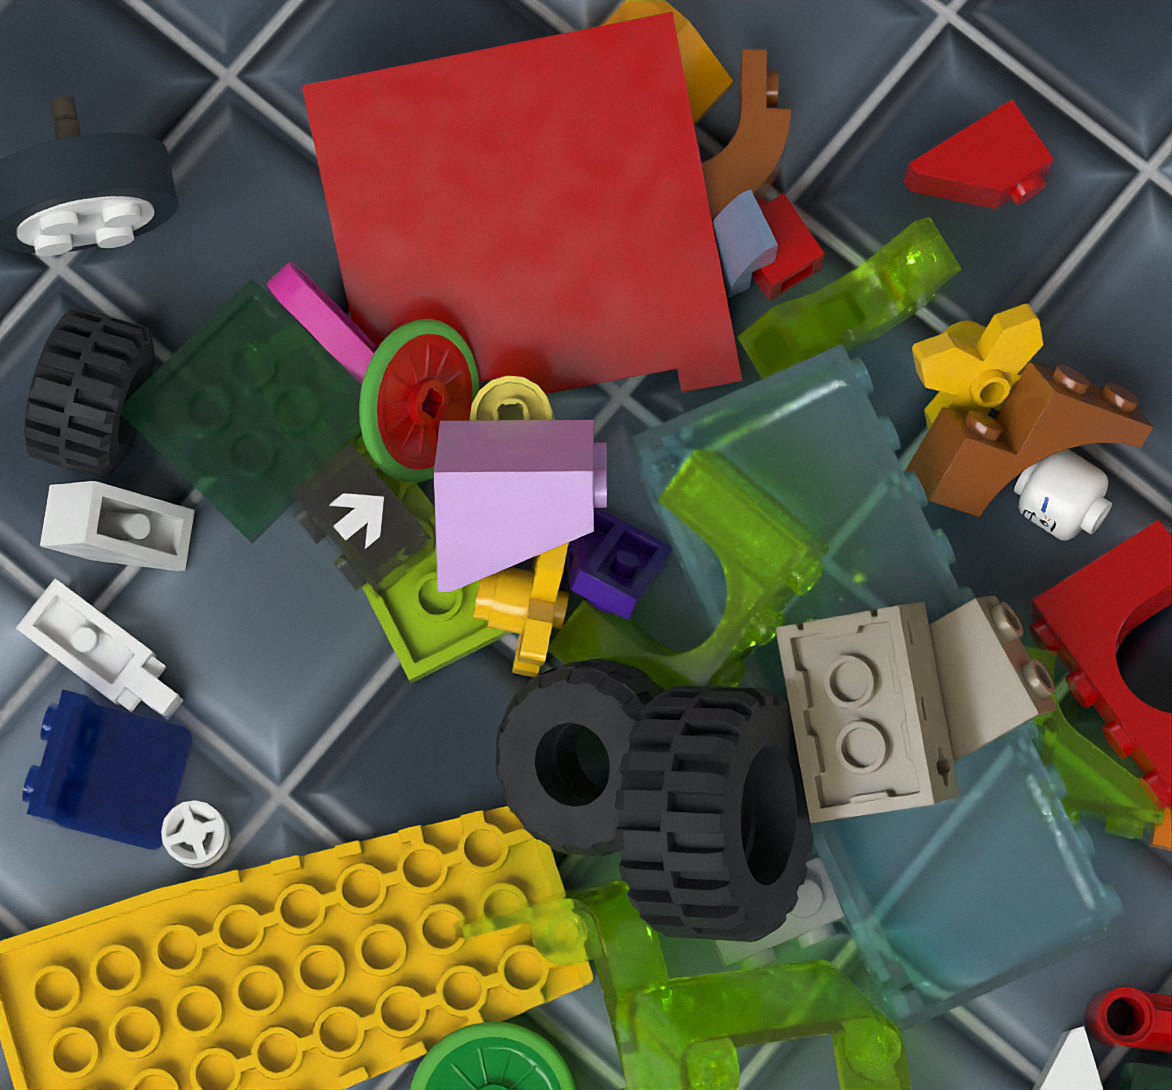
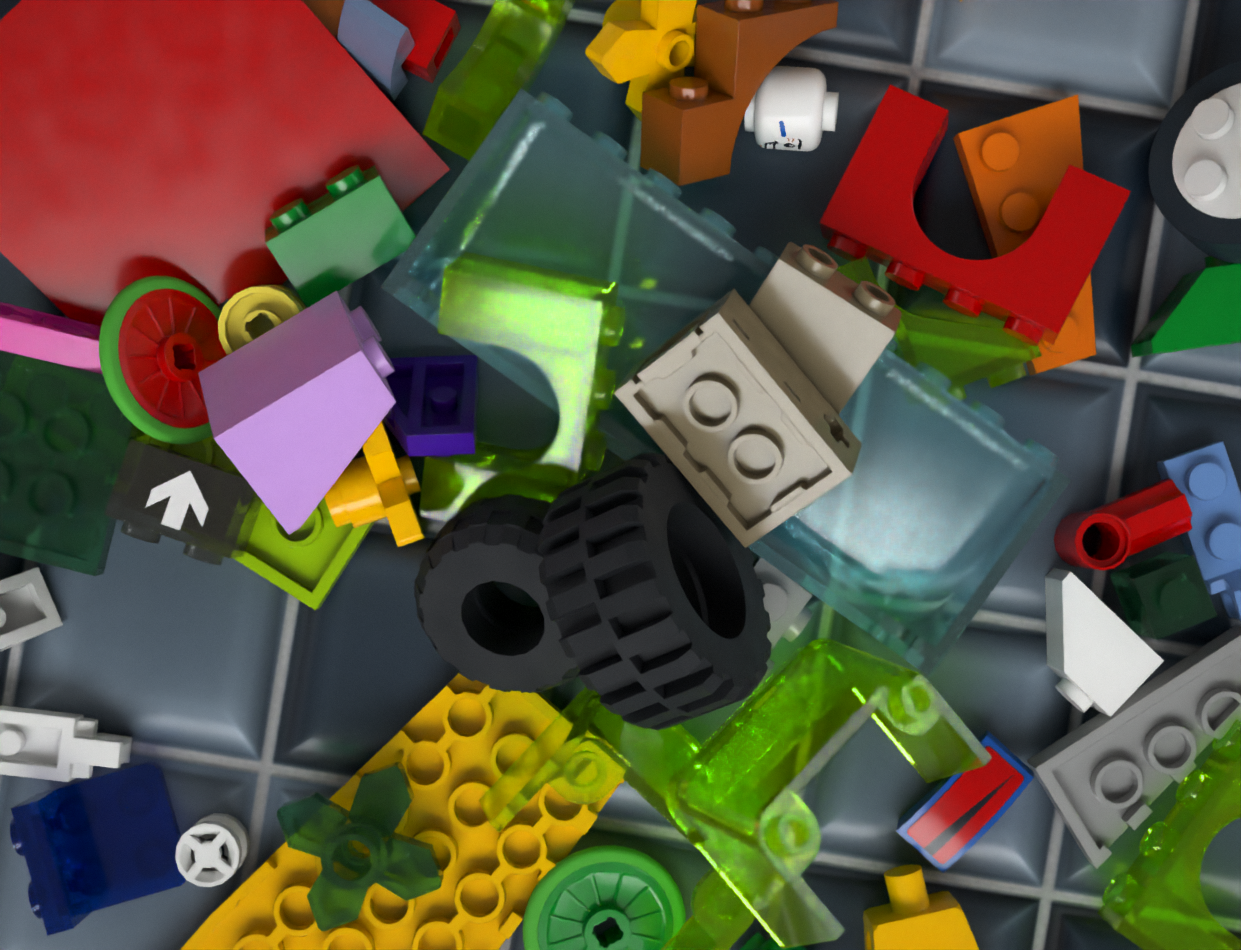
camera: 30 degrees left, 10 degrees up
(299, 920) = (327, 831): none -> clear green plant
(619, 379) = (338, 234): none -> green brick

